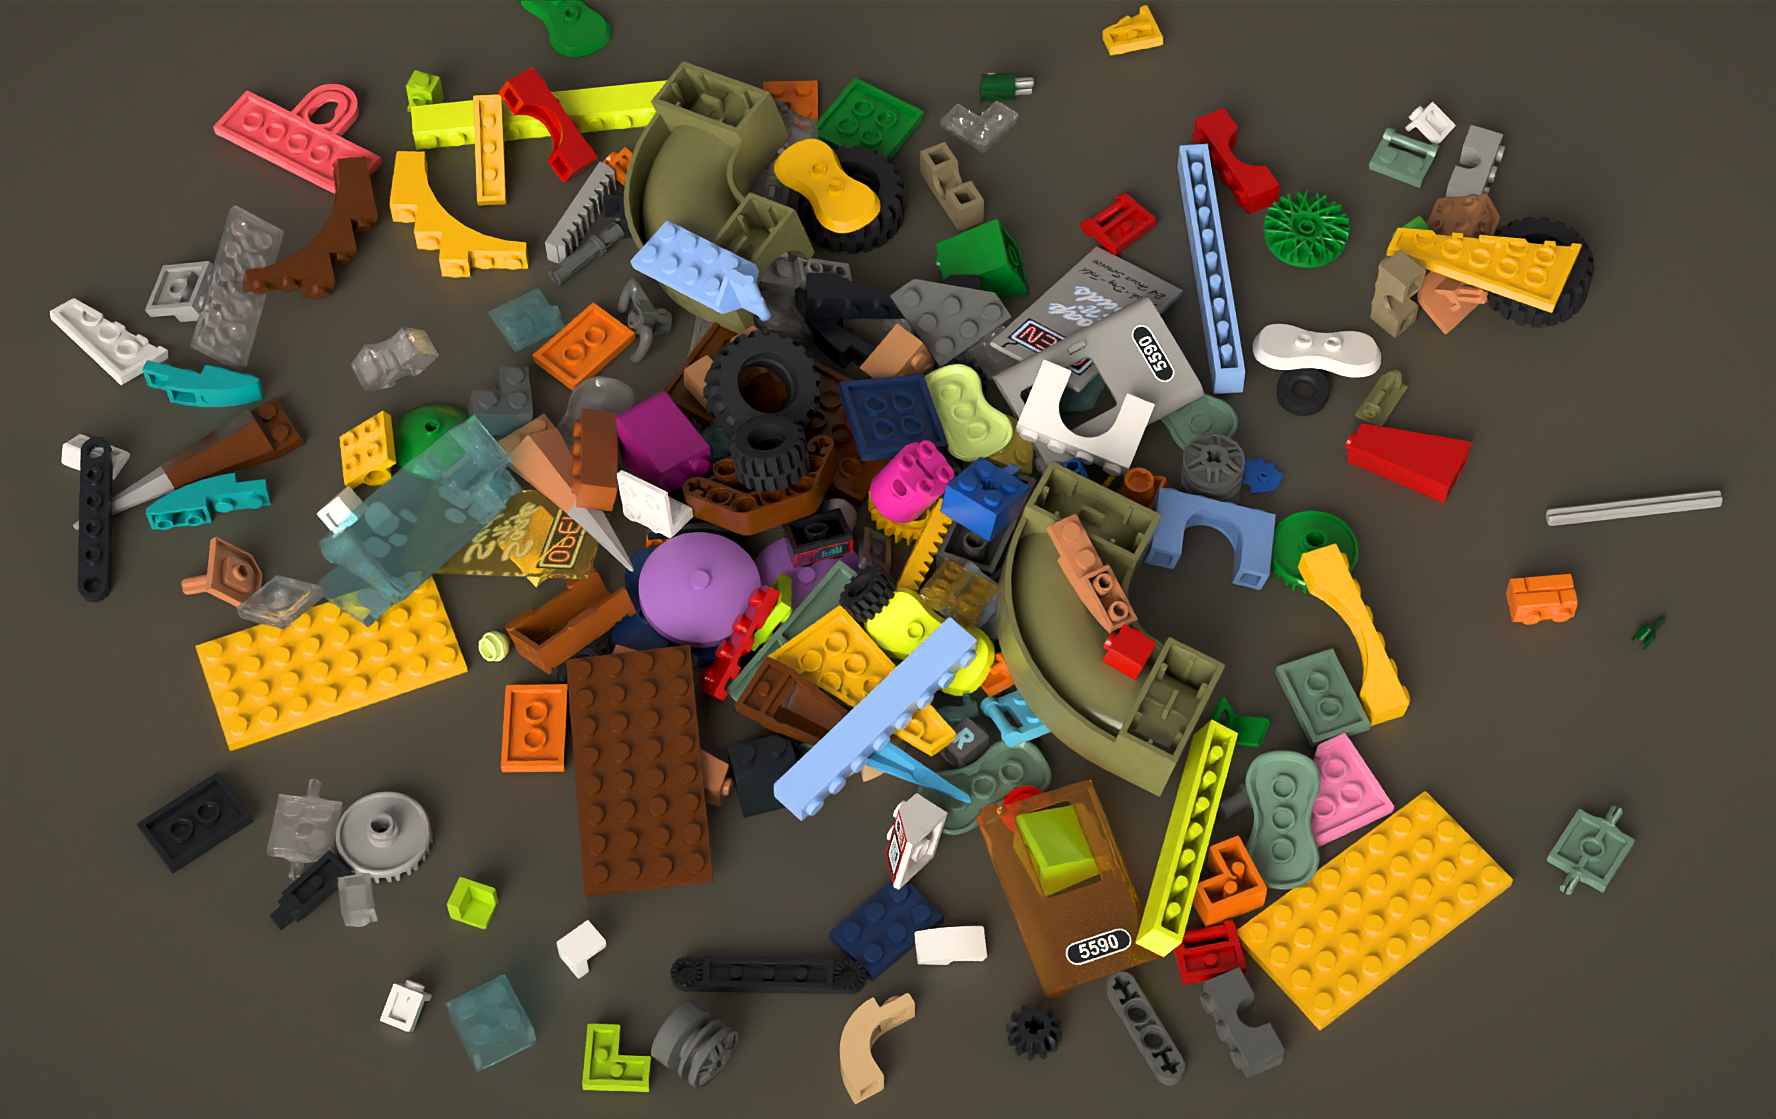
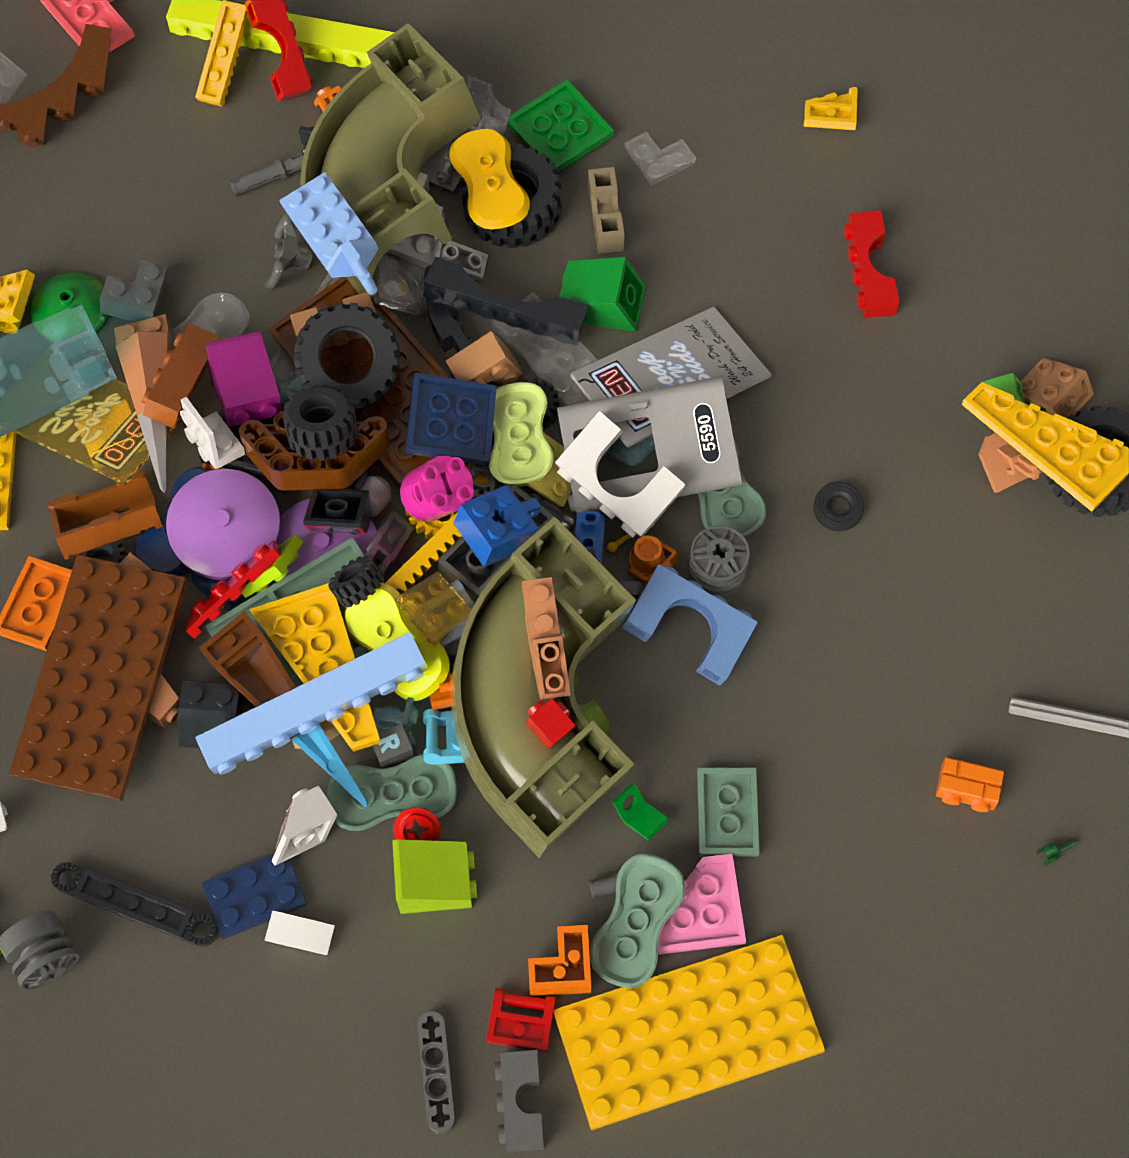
camera: 20 degrees right, 10 degrees up
(385, 362) = (67, 221): clear brick -> none
(436, 229) = (162, 135): yellow arch -> none
(494, 646) = (36, 515): yellowish green plate -> none
(527, 320) = (192, 220): clear light blue hinge -> none
(580, 213) = (277, 135): light grey gear -> none
(584, 346) = (229, 261): orange plate -> none
(798, 95) = (511, 81): orange plate -> none
(861, 1031) = (180, 995): tan arch -> none
(948, 315) = (544, 336): dark grey plate -> none
(1003, 87) = (691, 128): dark green piece -> none
(1021, 1036) = (333, 1031): black gear -> none
(1080, 931) = (419, 965): clear orange piece -> none
(1124, 228) = (745, 297): red plate -> none
(1187, 839) = (542, 910): neon yellow brick -> none
(1211, 270) = (802, 363): light blue brick -> none
(1261, 476) = (765, 576): blue piece -> none
(1304, 533) = (779, 684): green wheel -> none
(1306, 230) = (905, 353): green wheel -> none
(1329, 579) = (778, 703): yellow arch -> none
(1338, 352) = (886, 481): white plate -> none
(1382, 398) = (907, 539): olive hinge -> none
(1396, 282) = (956, 441): dark tan arch -> none
(1402, 164) = (1024, 313): sand green plate -> none
(1409, 458) = (907, 606): red slope -> none
(1430, 122) = (1067, 282): white bracket -> none
(1480, 152) = (1102, 324): light grey arch -> none
(1591, 850) = (909, 1047): sand green plate -> none

